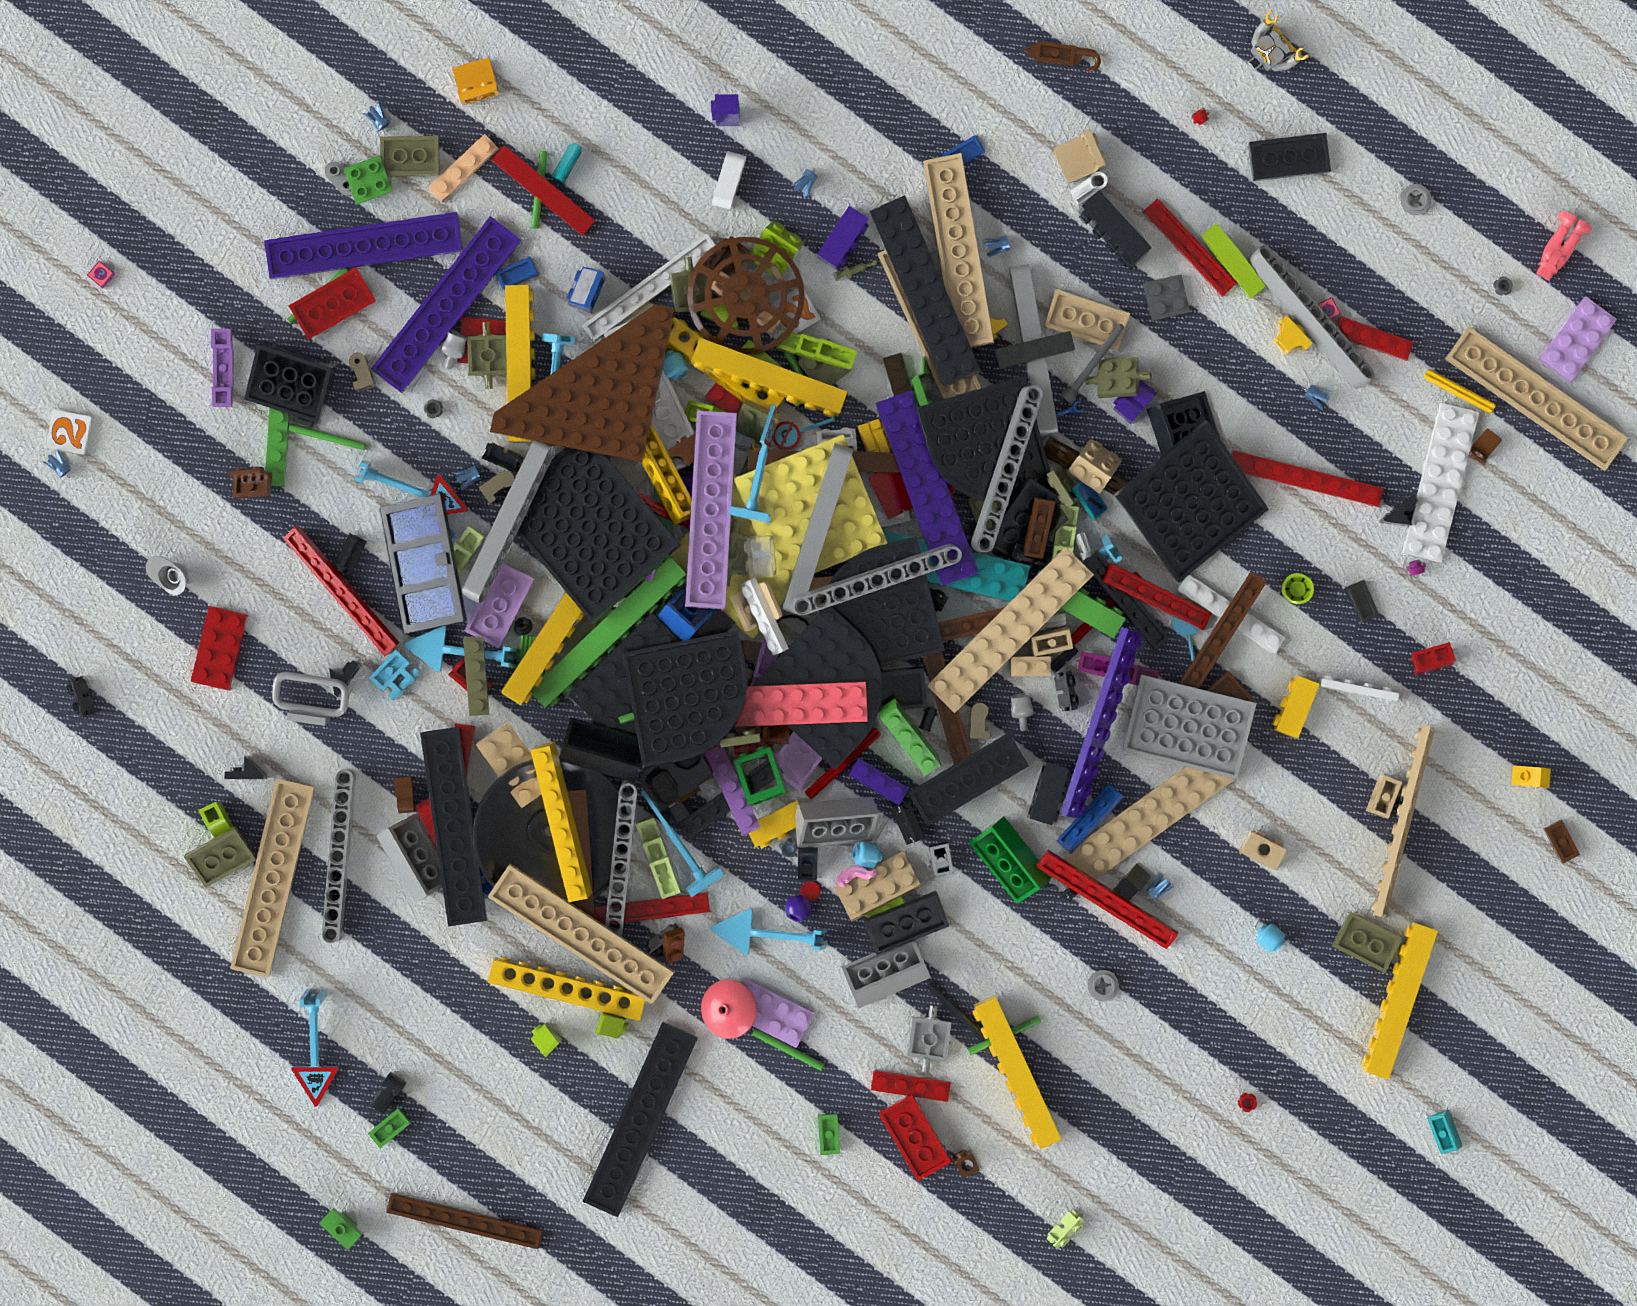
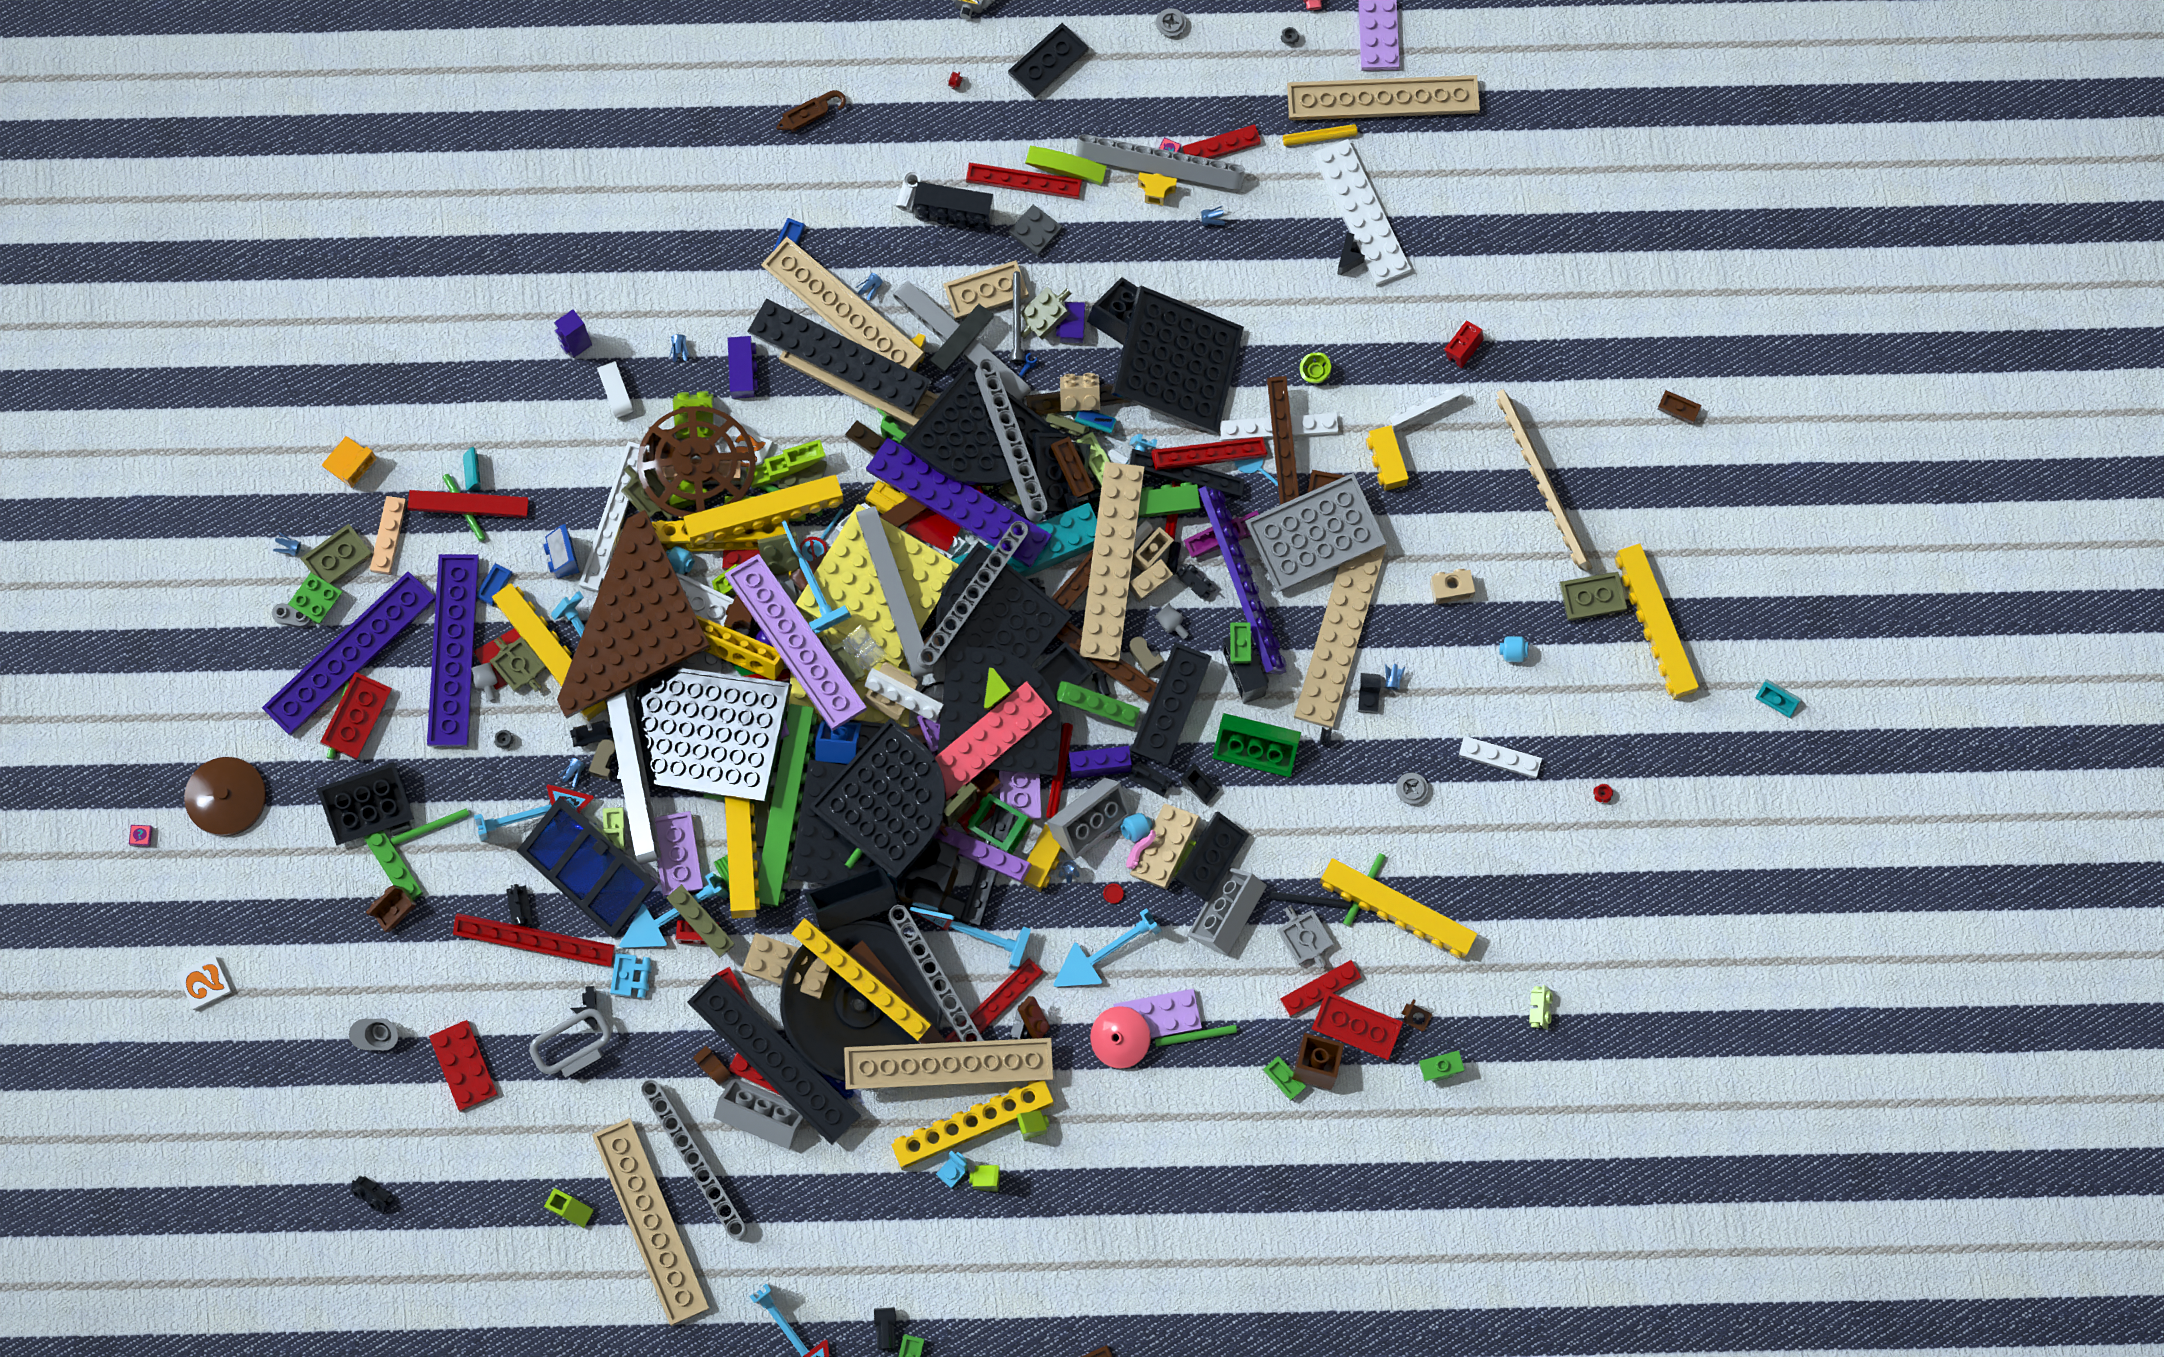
camera: 30 degrees left, 15 degrees down
(61, 468) = (218, 1014): flat silver piece -> none
(187, 291) = (225, 796): none -> reddish brown dish
(220, 857) = (592, 1236): olive plate -> none
(222, 367) = (299, 833): medium lavender slope -> none
(251, 771) = (567, 1146): black slope -> none
(363, 372) = (417, 749): dark tan leg -> none
(523, 626) = (709, 856): black plate -> none
(526, 1012) = (953, 1169): none -> medium azure bracket
(640, 1119) = (1117, 1187): black plate -> none
(658, 857) = (965, 959): yellowish green slope -> none
(798, 908) = (1114, 912): dark purple piece -> none
(807, 863) = (1092, 870): black slope -> none
(836, 672) = (996, 690): none -> lime slope
(853, 270) = (766, 390): olive piece -> none
(862, 1143) = (1318, 1061): none -> reddish brown brick
(953, 1218) = (1441, 1067): none -> bright green brick
(1056, 777) = (1240, 642): none -> bright green plate
(1080, 157) = (884, 174): tan bracket -> none
(1093, 815) = (1295, 660): blue tile -> none
(1107, 899) = (1359, 715): red plate -> none
(1191, 1012) = (1500, 757): none -> white plate
(1308, 479) = (1260, 281): red plate -> none
(1362, 601) = (1373, 343): pearl dark grey tile -> none
(1383, 796) = (1512, 473): tan brick -> none
(1416, 567) = (1394, 286): magenta plate -> none
(1485, 446) = (1372, 158): reddish brown bracket -> none
(1531, 776) = (1614, 374): yellow brick -> none

